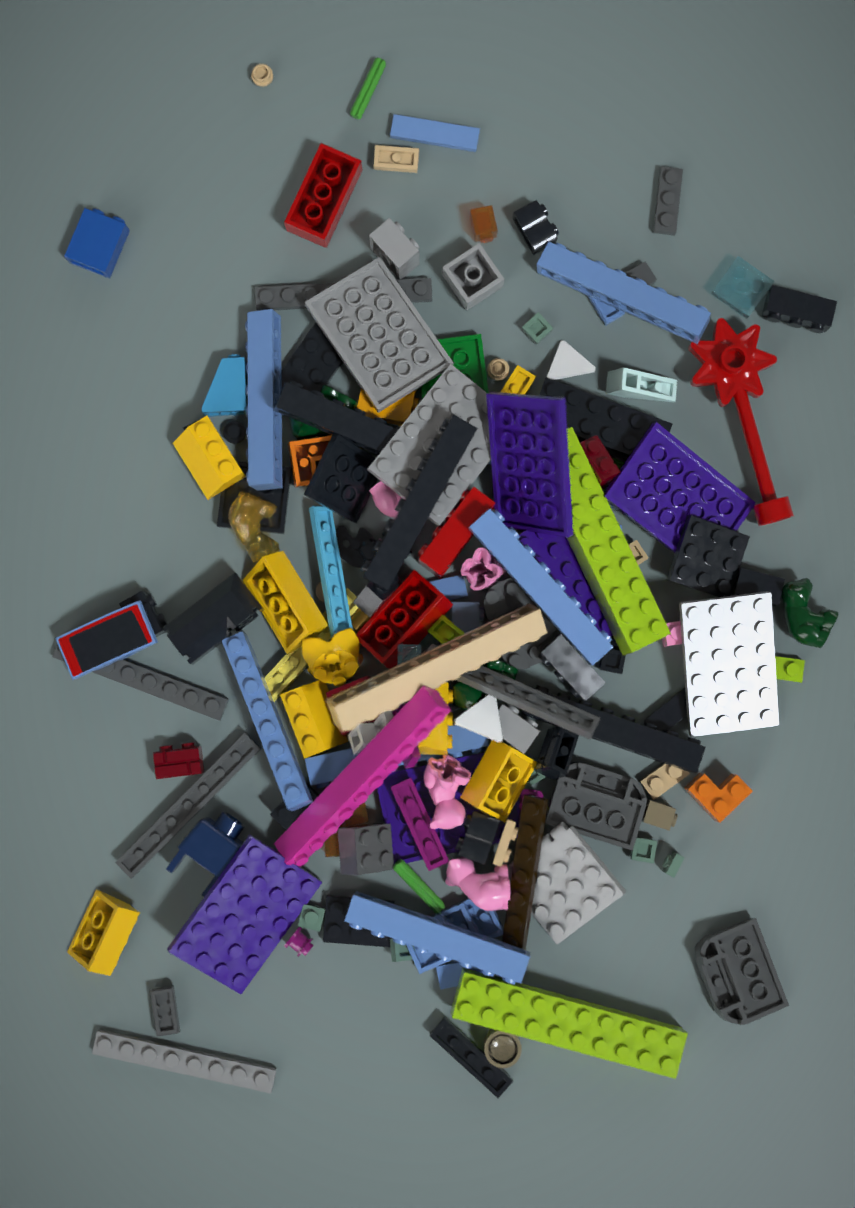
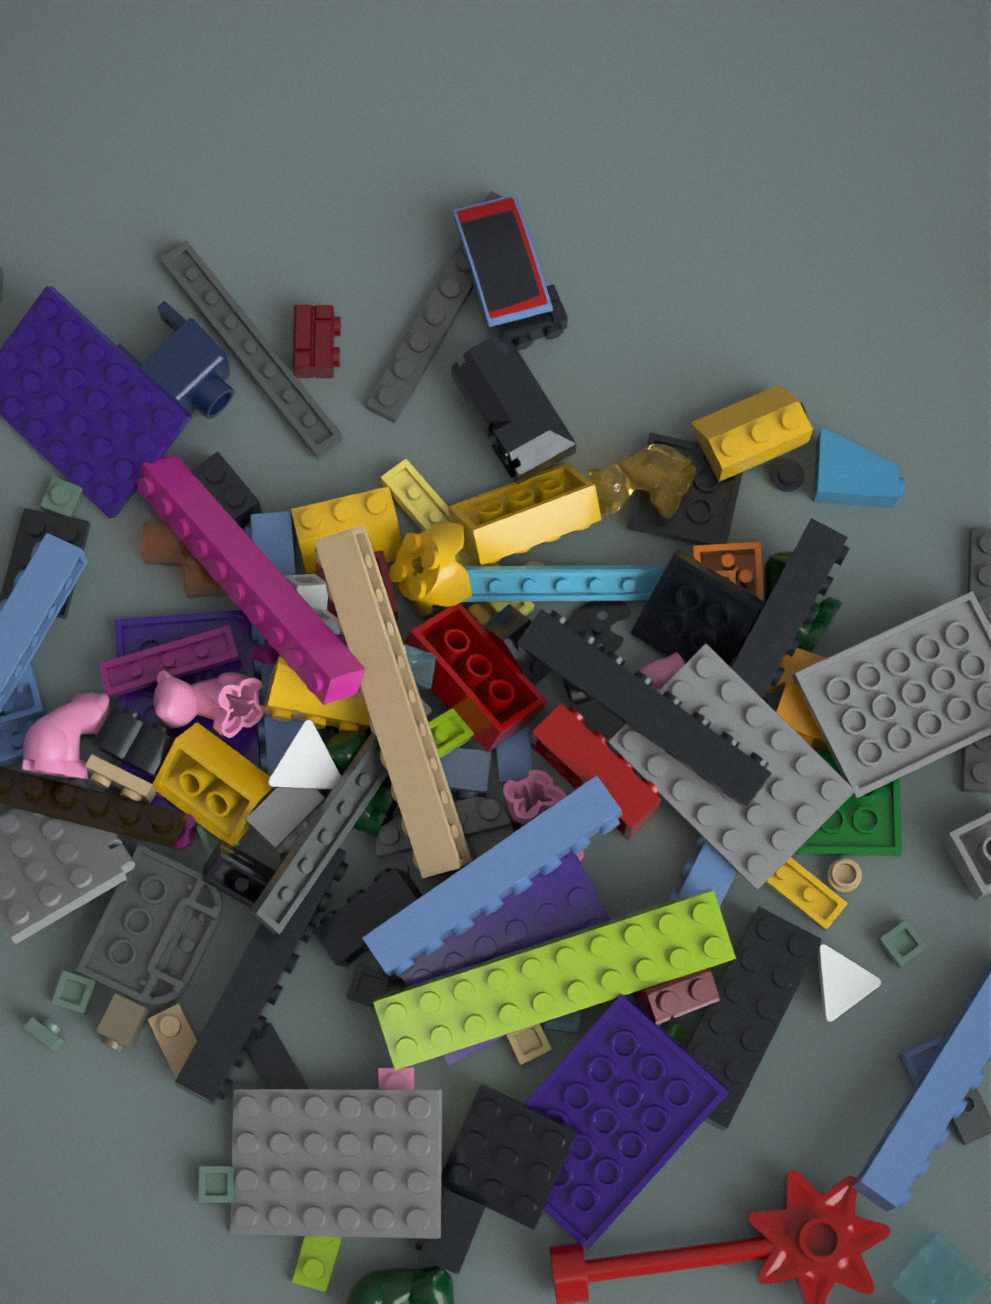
camera: 95 degrees right, 10 degrees down
(103, 933) = (90, 215): yellow slope -> none
(263, 390) = (867, 522): medium blue brick -> none
(267, 721) = (351, 462): medium blue brick -> none
(299, 943) = (29, 475): magenta brick -> none
(312, 362) = (873, 592): black plate -> none
(365, 848) = (145, 579): dark grey brick -> none
(419, 886) = (79, 651): bright green axle -> none
(530, 462) = (685, 882): dark purple plate -> none
(640, 385) = (795, 1094): light aqua slope -> none
(718, 800) = (128, 1118): orange brick -> none
(750, 738) = (216, 1184): none -> sand green plate

